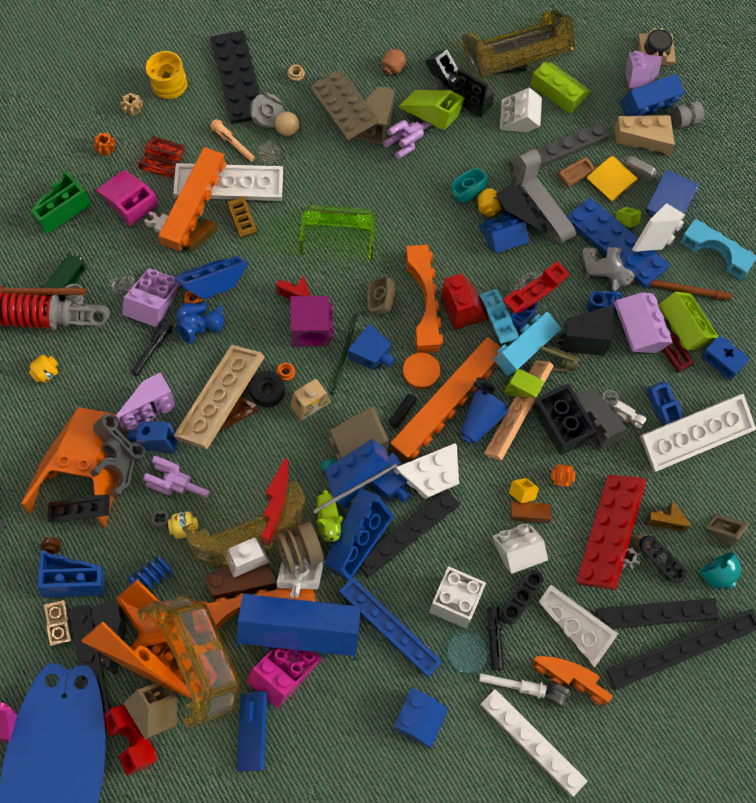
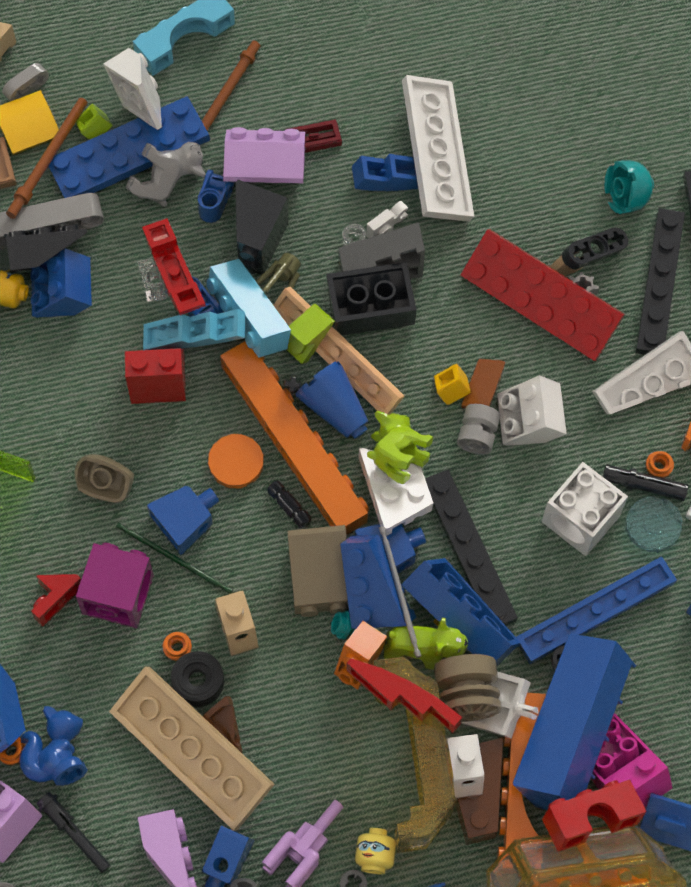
camera: 70 degrees left, 0 degrees up
(245, 660) = (614, 803): none -> red arch
(310, 477) = (363, 645): none -> orange slope
(419, 266) = (71, 412): orange arch -> none
(462, 463) = (397, 446): none -> lime animal
(501, 517) = (478, 429): none -> light grey wheel
(515, 640) = (661, 457): none -> orange plate
(523, 588) = (598, 419): black beam -> none
(556, 189) = (24, 192): none -> dark orange bar
(563, 475) = (448, 327): orange gear -> none
(673, 190) = (81, 57): blue slope -> none
(673, 520) = (542, 219): pearl gold slope -> none
(688, 321) = (277, 105): lime slope -> none
(725, 357) = (342, 80): blue brick -> none
(726, 529) = (576, 162): dark tan slope -> none

